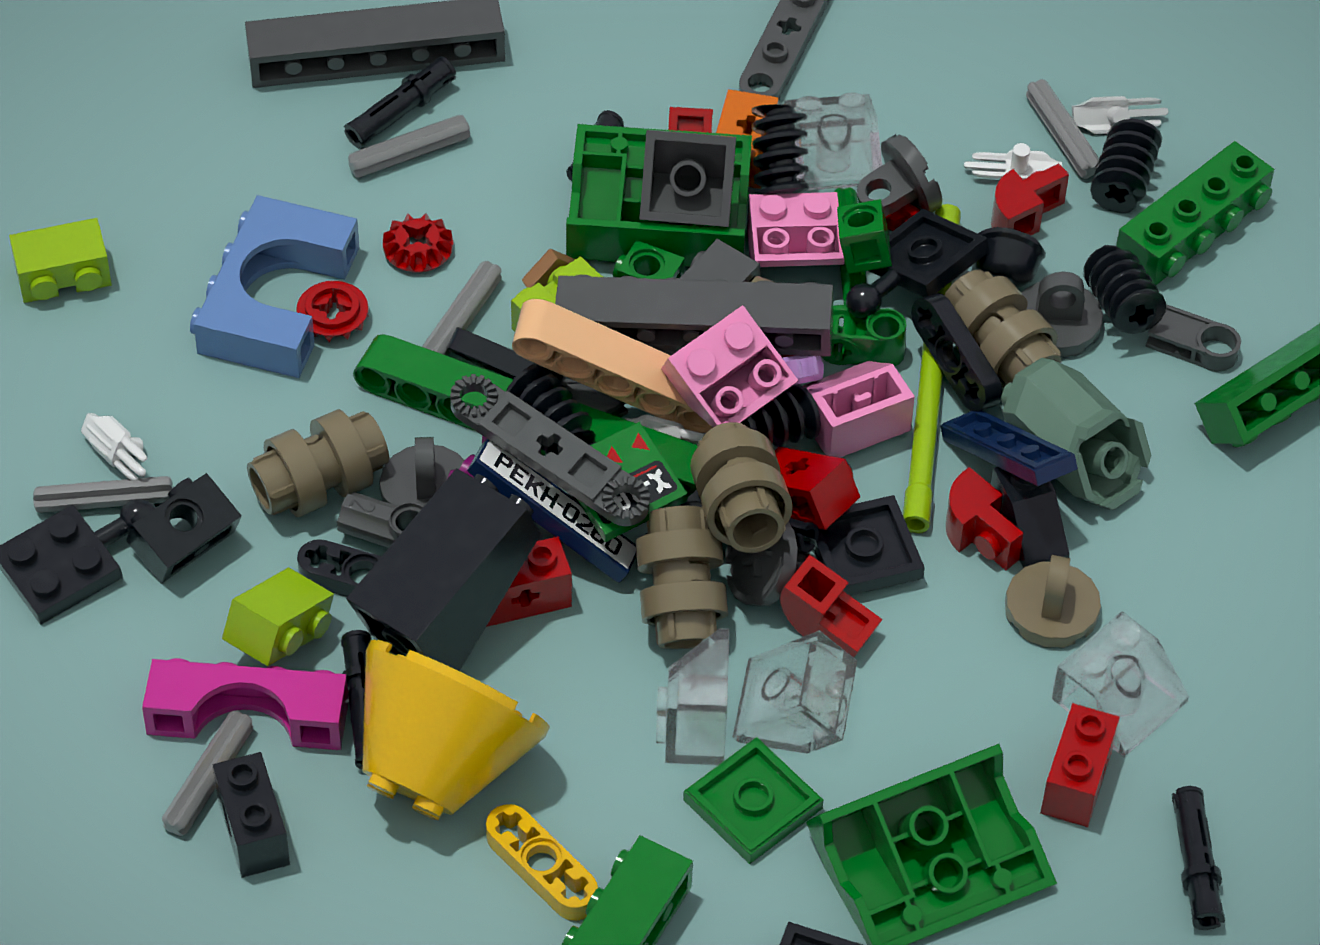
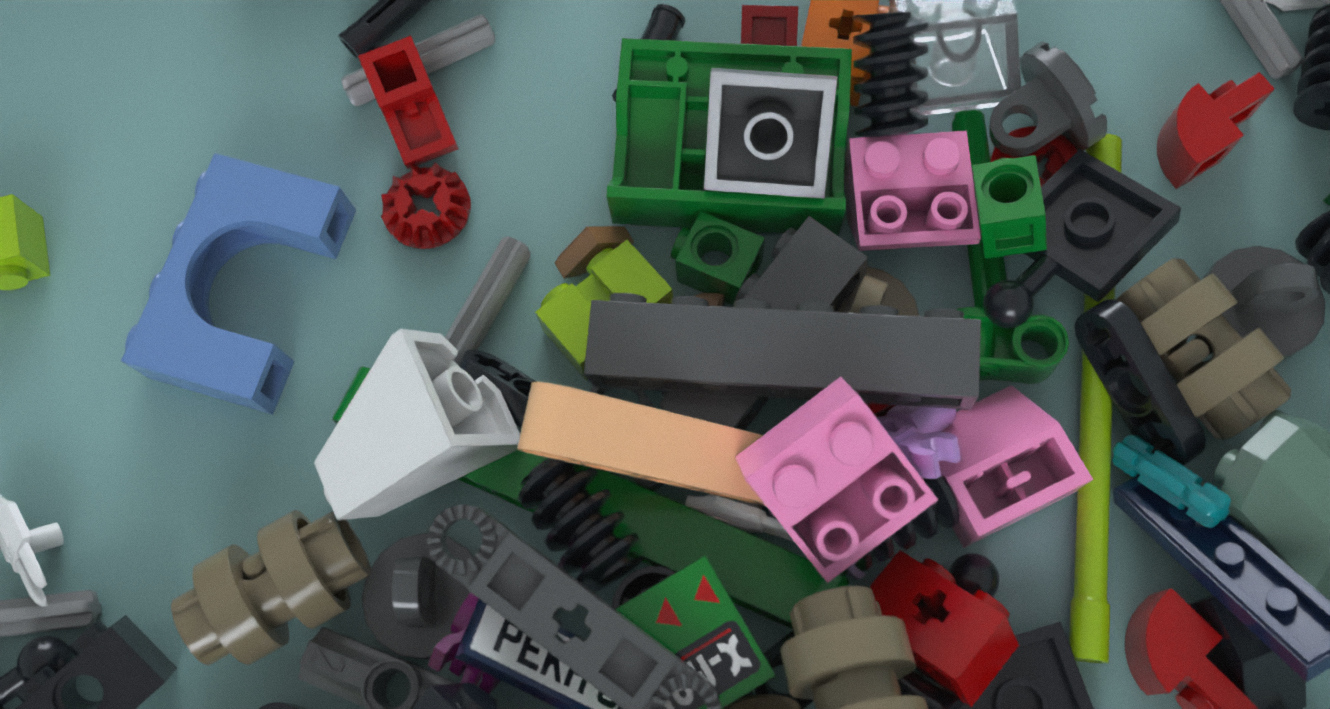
camera: 10 degrees right, 20 degrees up
(350, 302) = (298, 298): red gear -> none
(405, 169) = (408, 102): none -> red brick
(423, 356) = (412, 428): none -> white slope
(974, 408) = (1171, 481): none -> teal axle
(1011, 255) = (1205, 225): black helmet -> none
(1020, 159) = (1188, 65): white piece -> none

